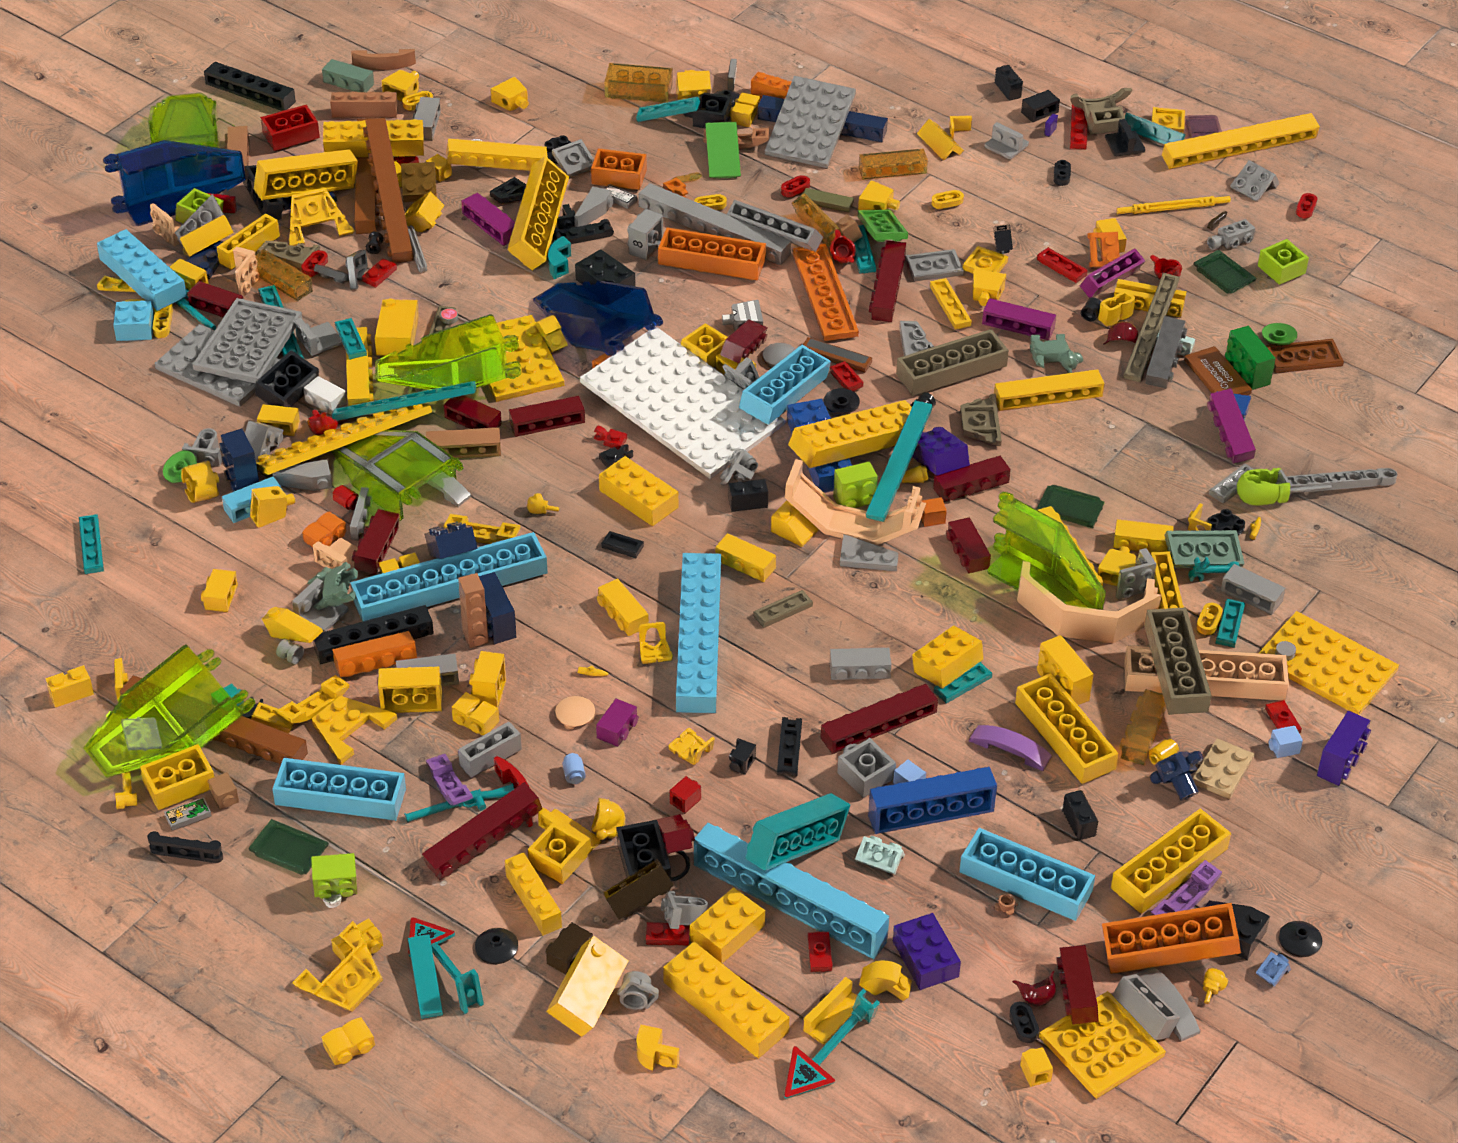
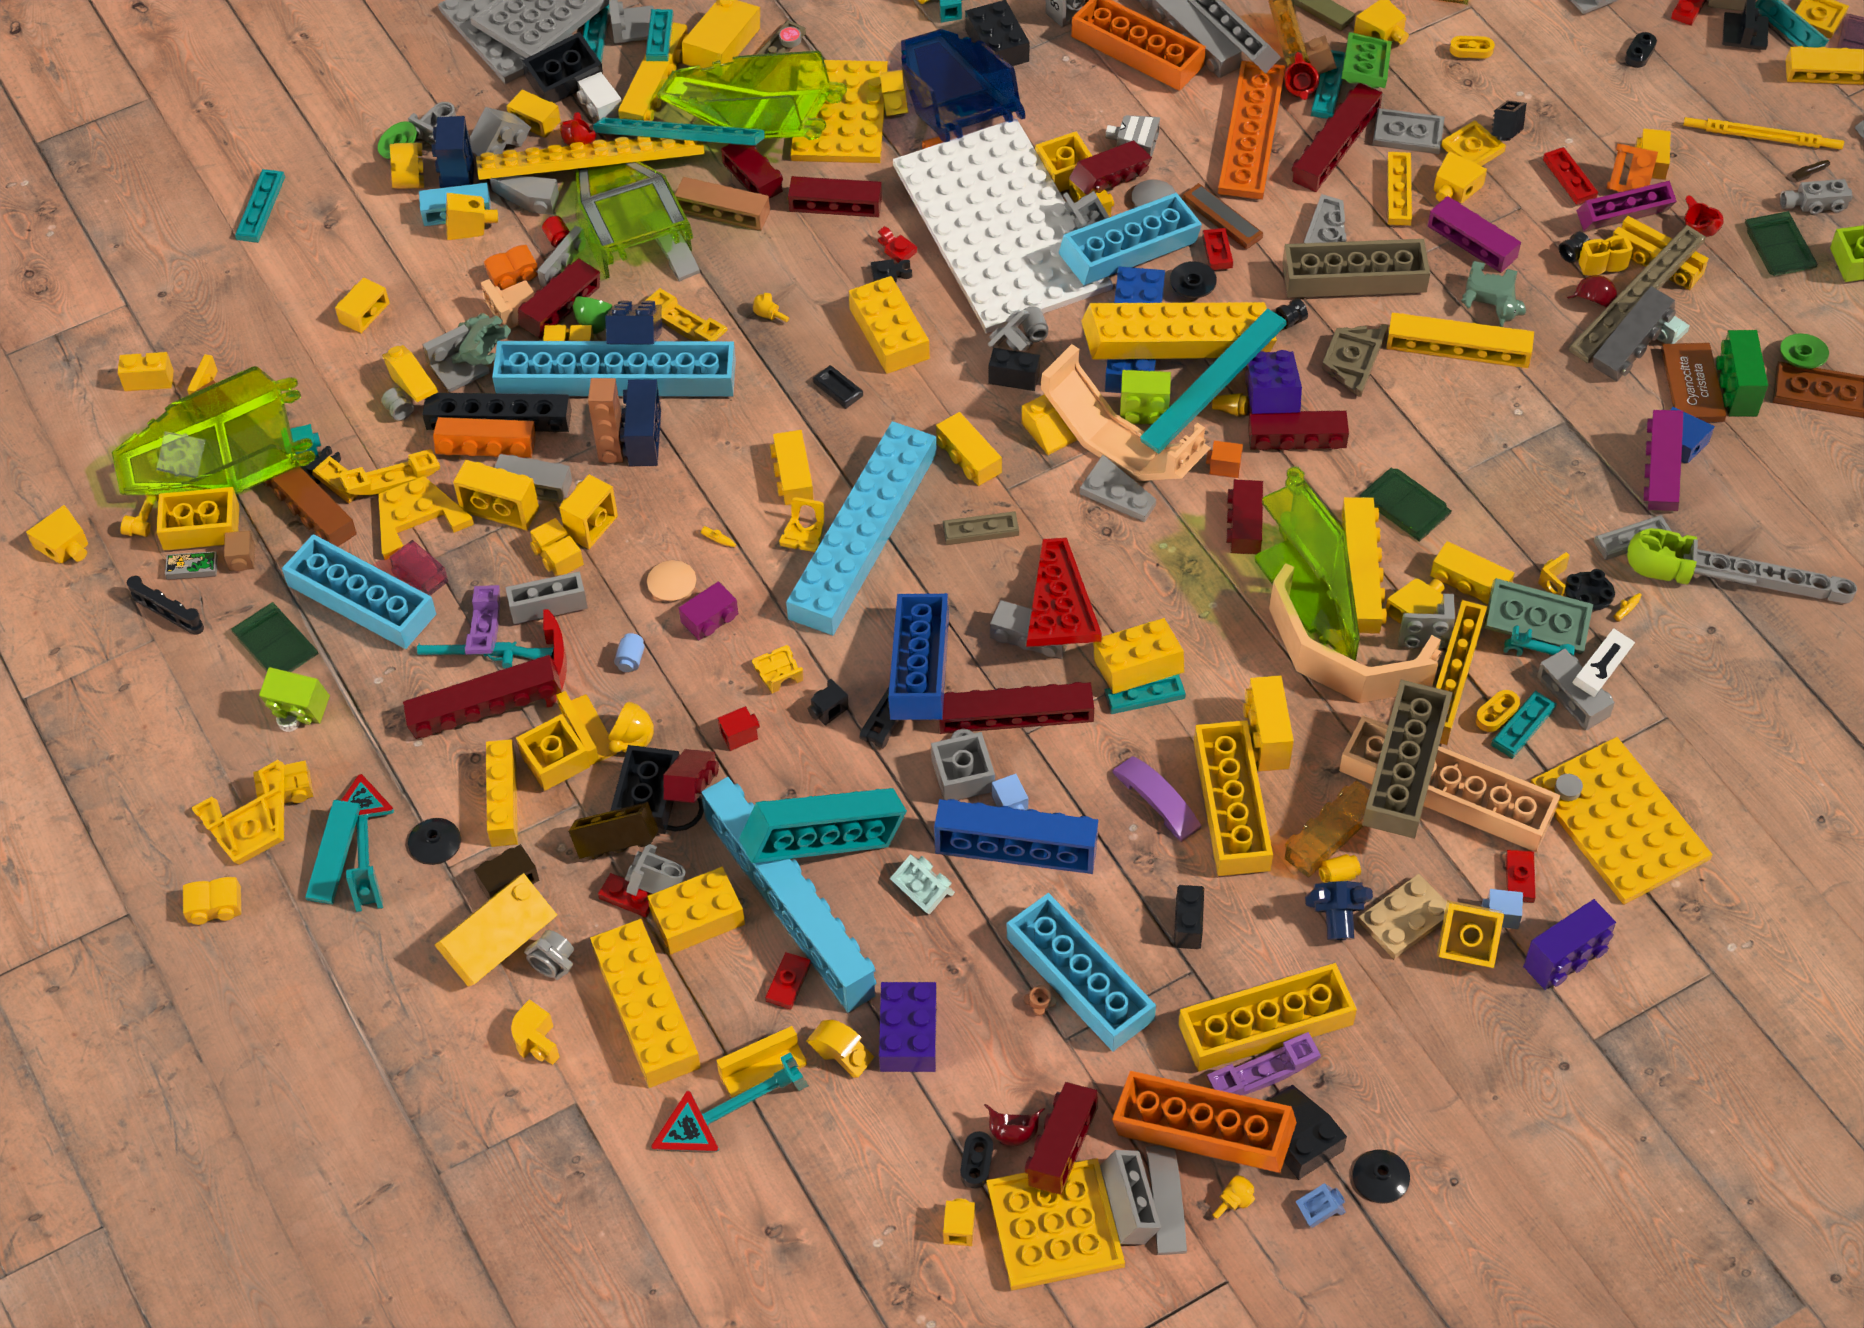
camera: 25 degrees right, 10 degrees up
(67, 825) = (59, 537): none -> yellow torso
(375, 757) = (418, 568): none -> clear pink brick
(409, 542) = (591, 312): none -> bright green helmet
(796, 702) = (919, 657): none -> blue brick
(874, 637) = (1060, 601): none -> red wing
(1263, 565) = (1603, 662): none -> white tile
(1276, 762) = (1470, 934): none -> yellow brick

